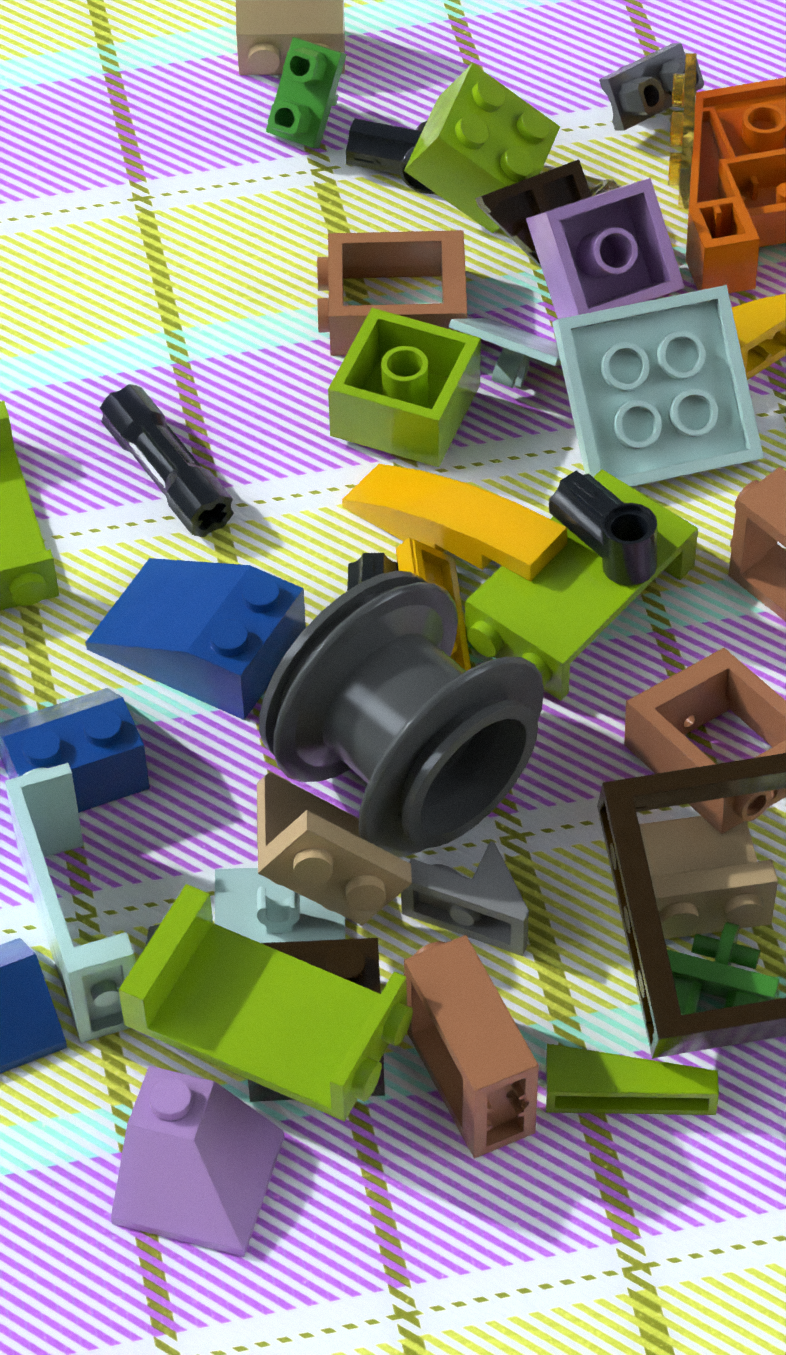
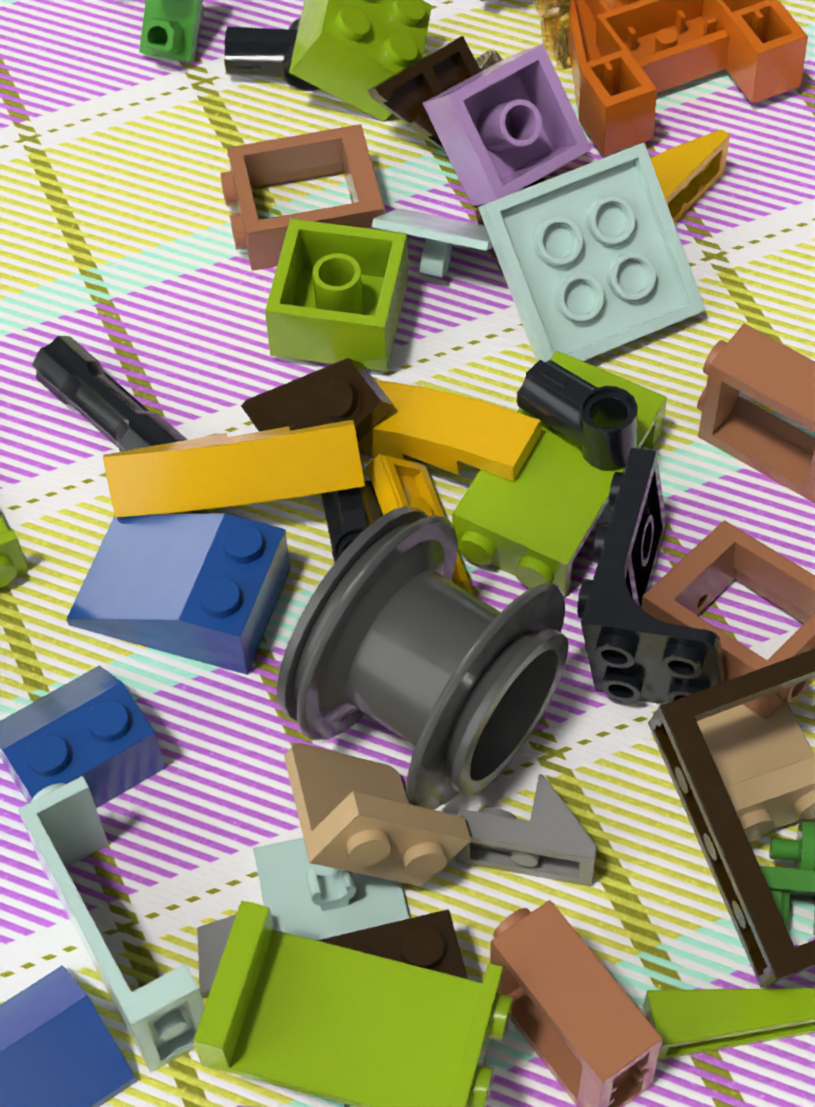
camera: 10 degrees left, 5 degrees up
(268, 529) = (234, 469): none -> yellow slope
(360, 498) = (321, 398): none -> dark brown wing
(618, 664) = (625, 646): none -> black bracket

